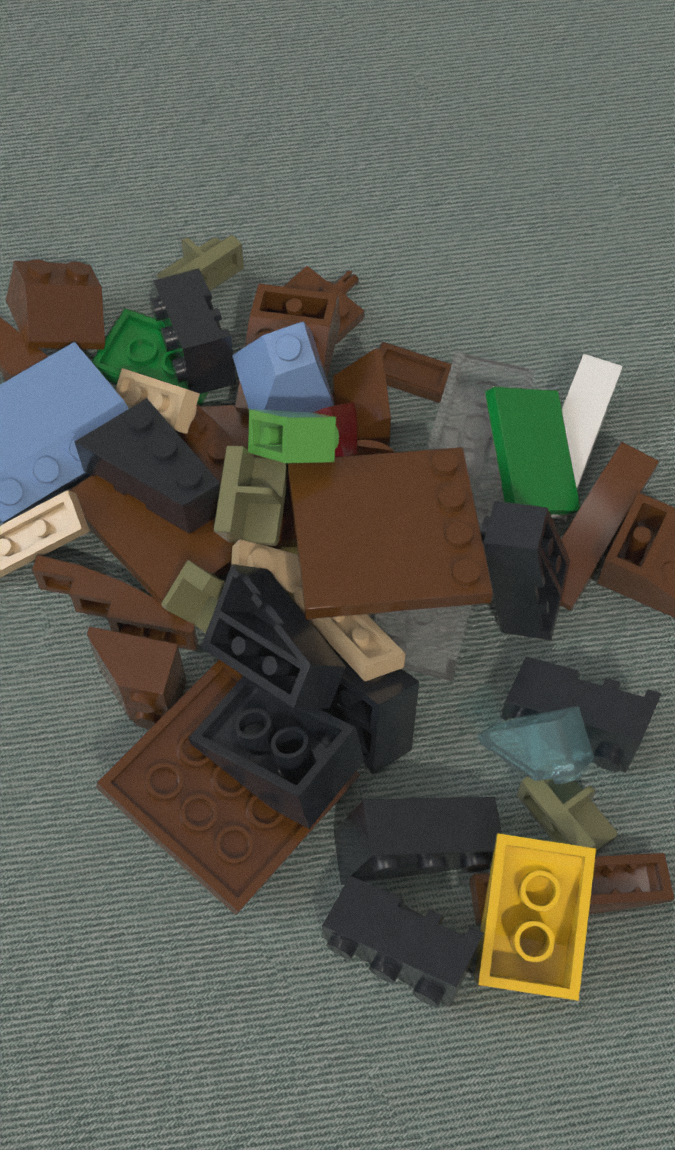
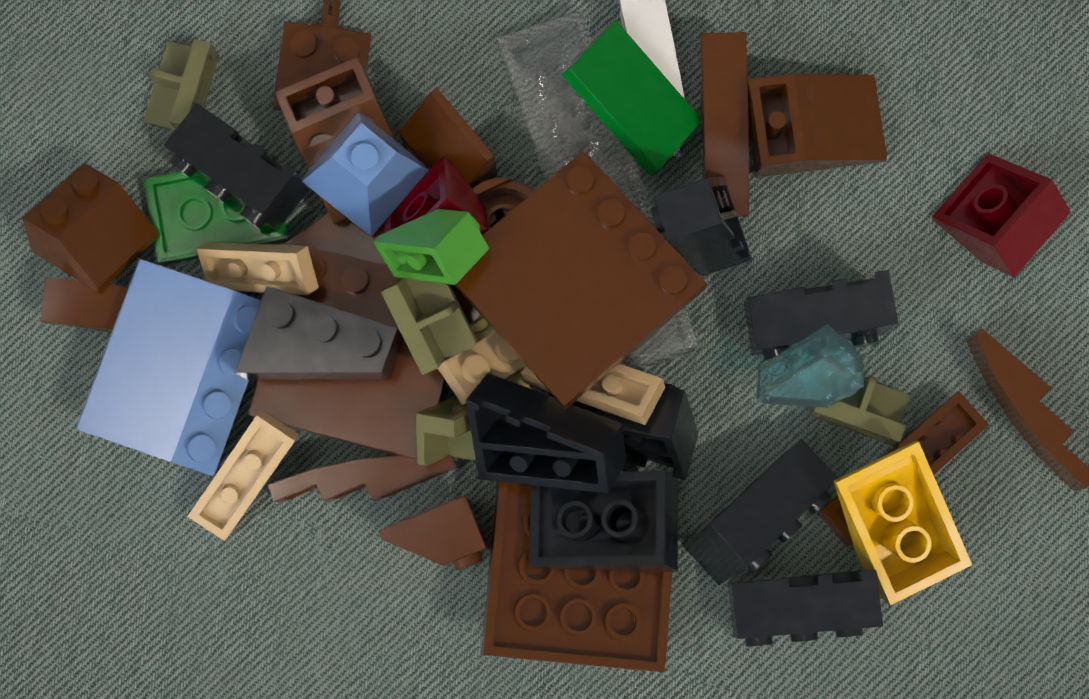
camera: 30 degrees left, 20 degrees up
(415, 372) = (457, 68): reddish brown tile -> none

